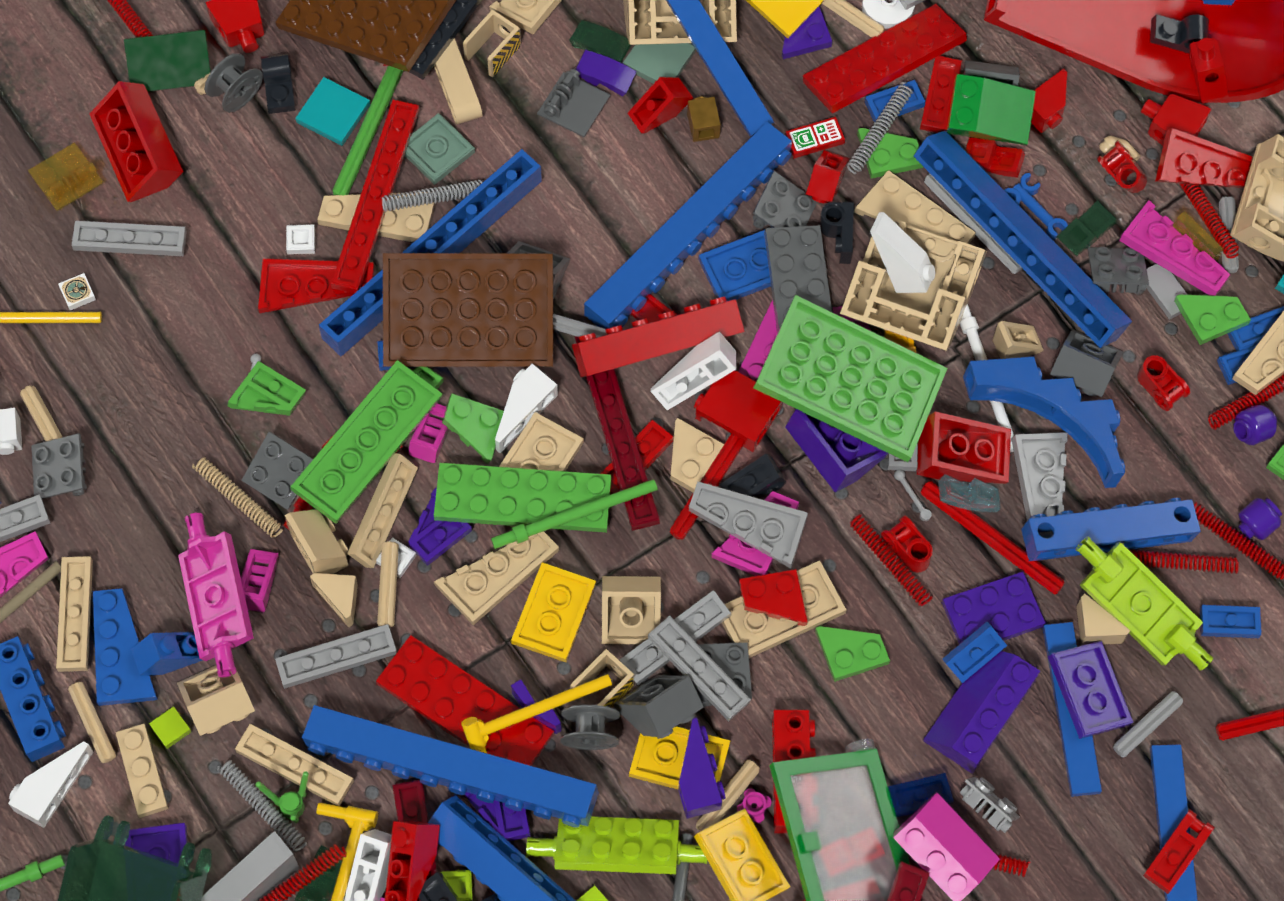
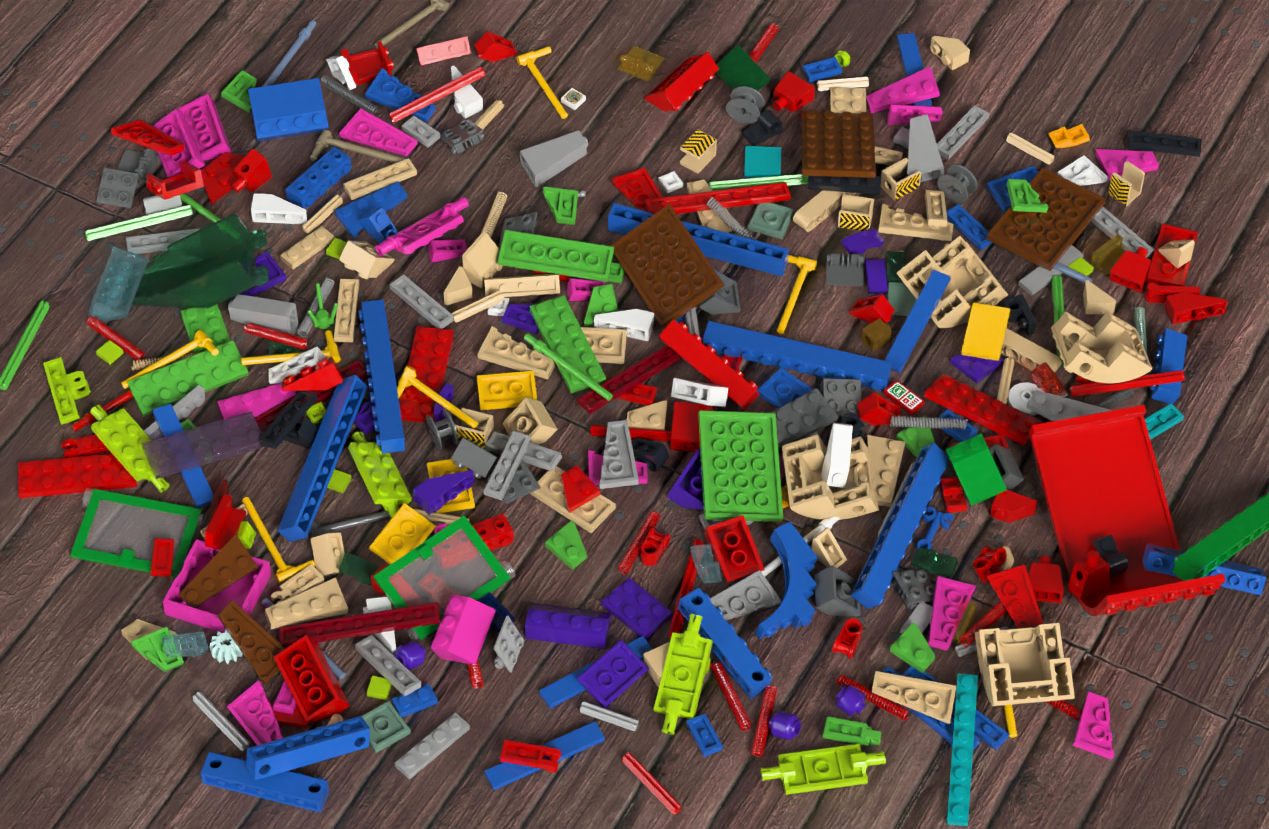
camera: 65 degrees right, 15 degrees down
(129, 238) = (620, 106): light grey plate -> none
(171, 371) = (553, 156): none -> light grey slope
(274, 179) = (699, 151): none -> piece
(539, 60) = (861, 241): none -> dark purple slope
(540, 145) = (804, 265): none -> yellow bar
(925, 514) = (682, 550): light grey hinge -> none
(974, 652) = (600, 602): blue plate -> none

